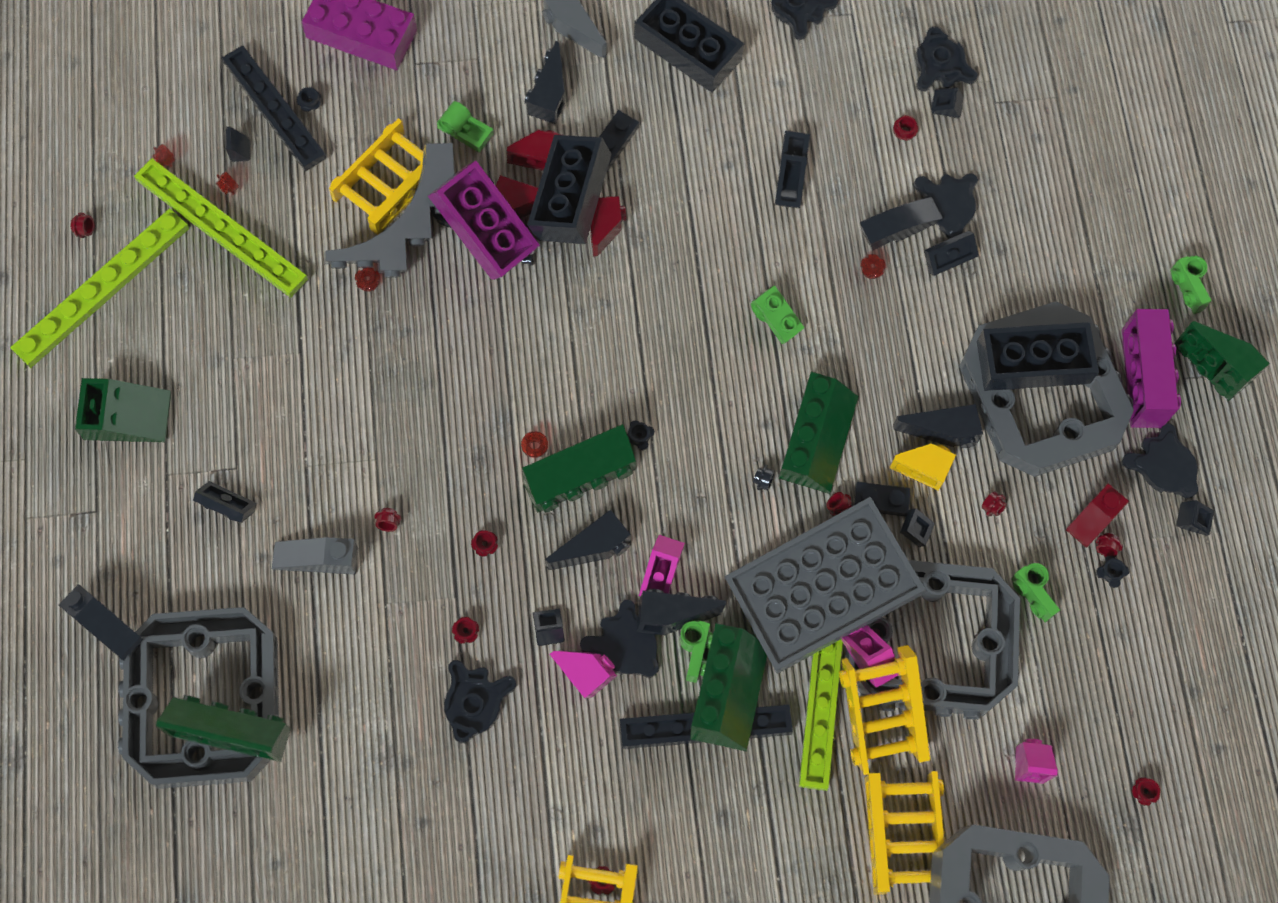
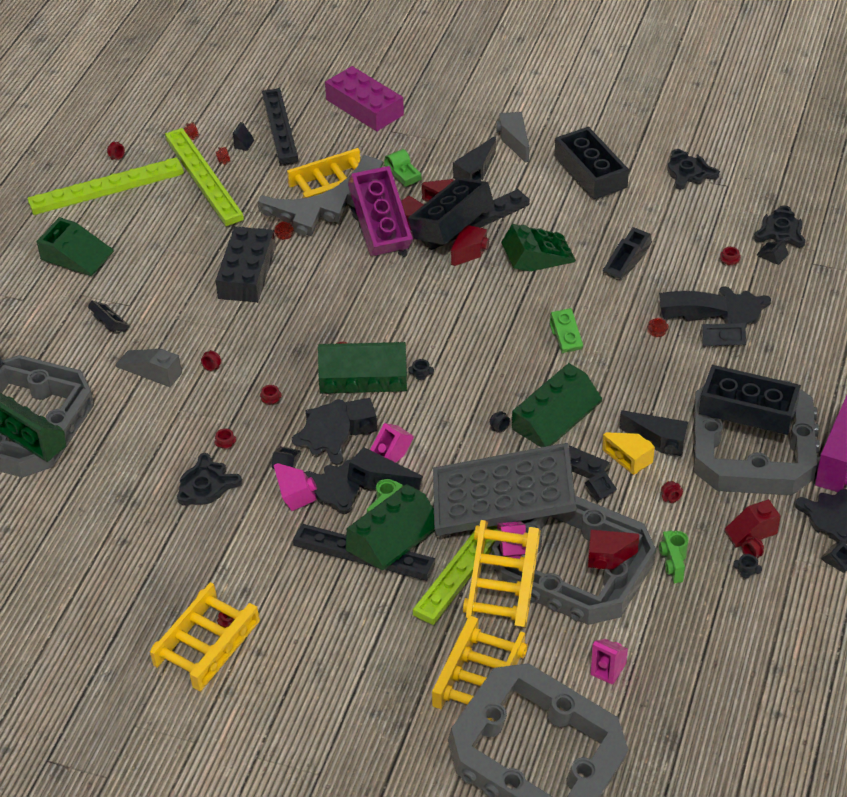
camera: 30 degrees right, 25 degrees down
(306, 94) = (306, 128): black plate -> none
(352, 355) = (245, 264): none -> black brick
(582, 576) = (326, 430): none -> black tile
(685, 199) = (535, 248): none -> dark green slope
(979, 627) = (611, 548): none -> dark red slope
(1153, 791) = (696, 710): dark red plate -> none

